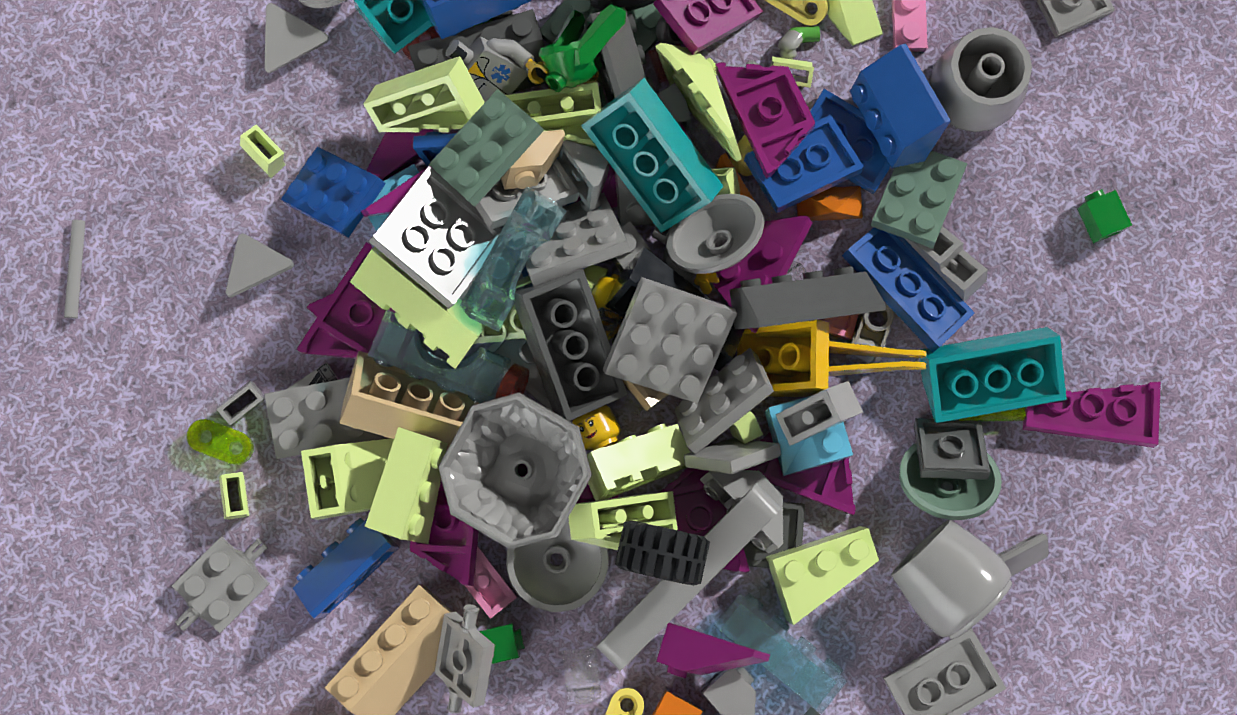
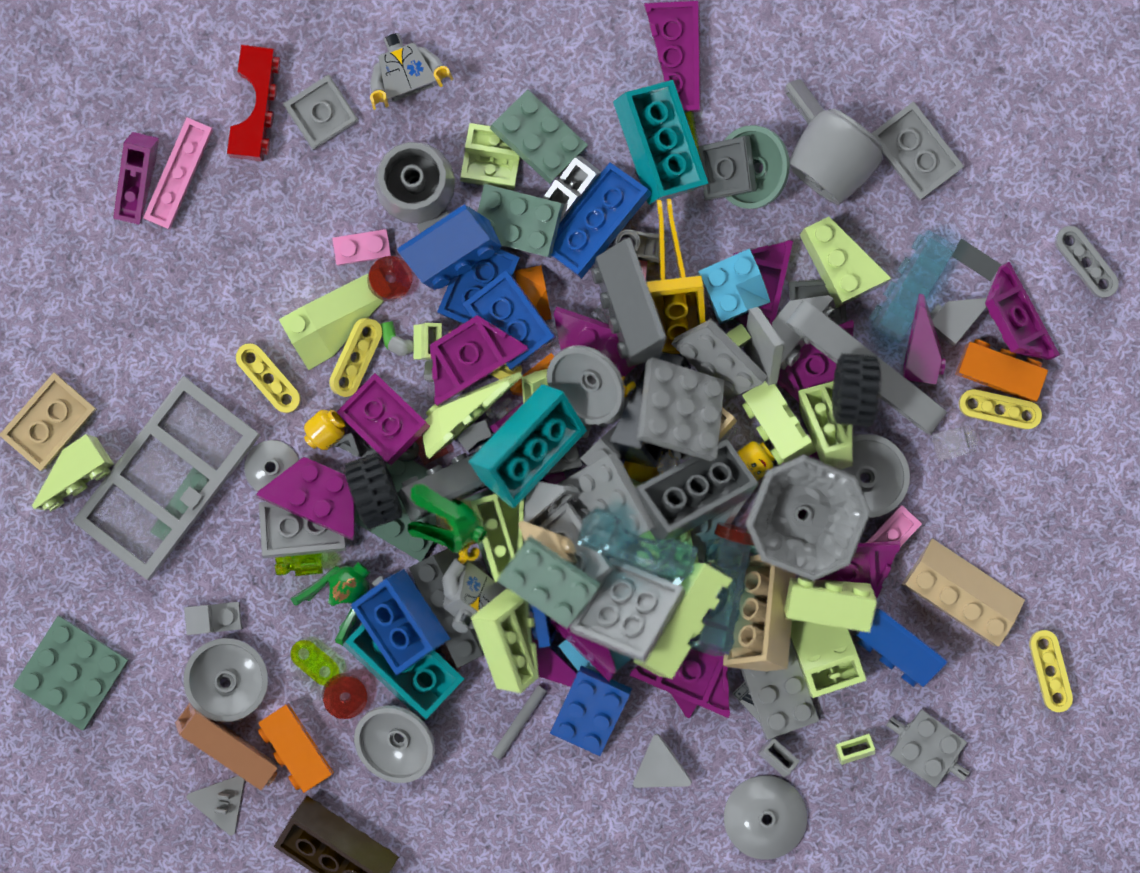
camera: 90 degrees left, 5 degrees up
(197, 384) = (745, 812): none -> light grey dish
(221, 441) = (812, 769): clear neon green plate -> none
(250, 139) = (566, 782): yellowish green piece -> none
(288, 38) = (460, 774): light grey piece -> none
(336, 115) = (519, 722): none -> light grey bar
(464, 659) = (959, 538): light grey plate -> none
(506, 641) = (941, 514): green brick -> none
(819, 413) = (723, 280): light grey slope -> none
(855, 37) = (389, 266): none -> clear red piece
(997, 179) = (488, 159): none -> yellowish green slope
(1015, 234) = (538, 136): none -> sand green plate
(1104, 215) = (511, 64): green brick -> none
(1108, 90) = (404, 72): none -> light grey torso

